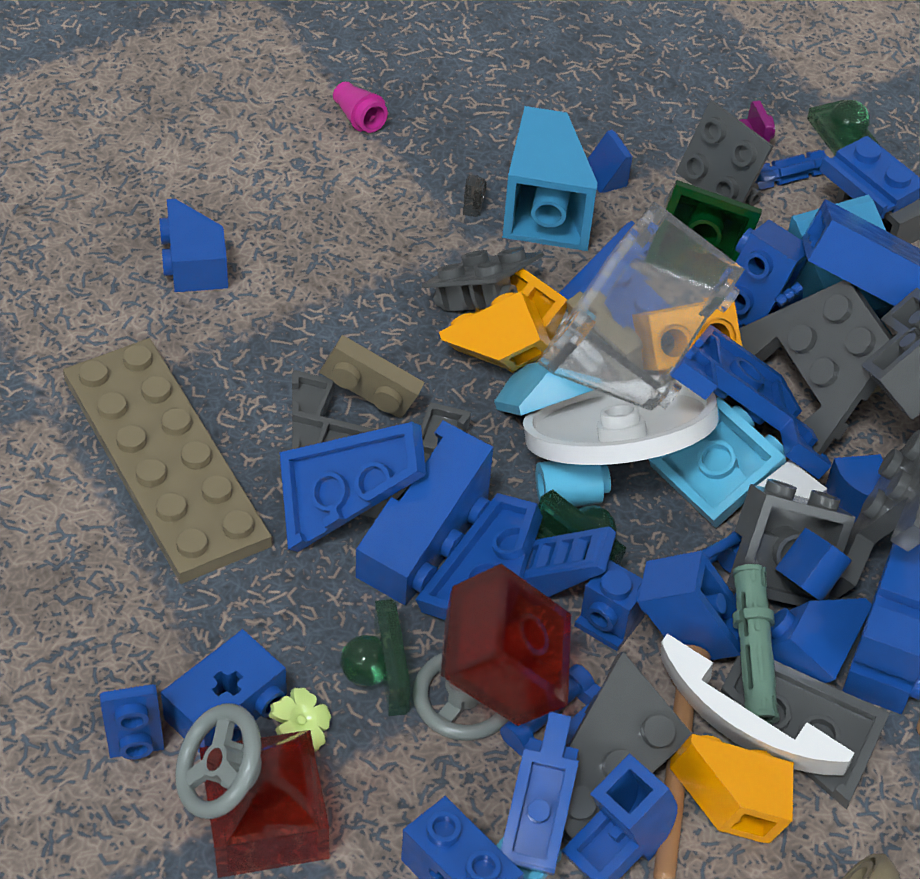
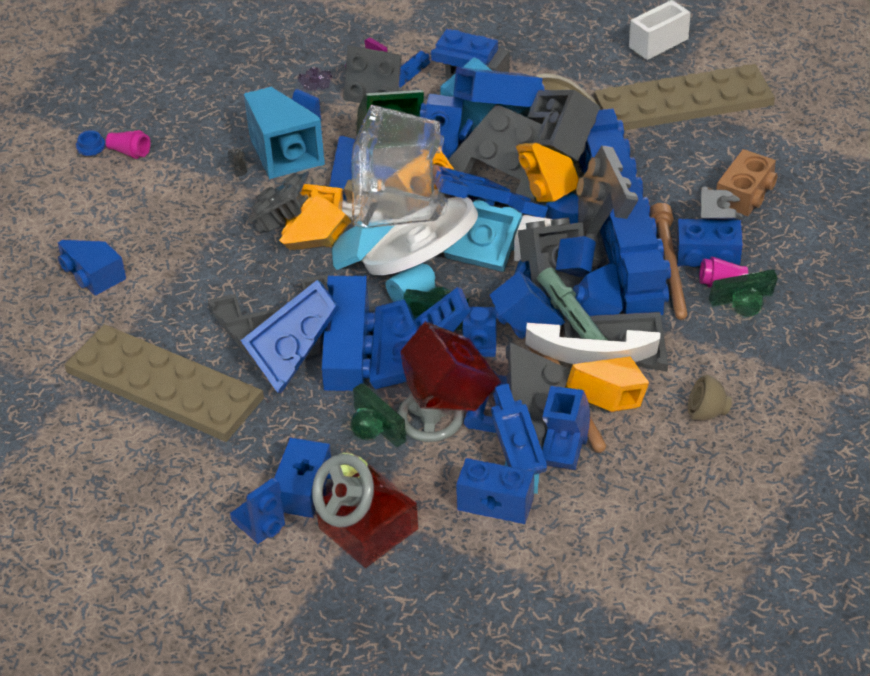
camera: 25 degrees left, 5 degrees down
(315, 84) = (90, 143): none -> blue plate
(371, 377) = (258, 281): dark tan plate -> none
(658, 126) = (315, 80): none -> clear purple plant
(840, 123) = (421, 32): clear green tile -> none
(861, 417) = (548, 172): none -> light orange slope

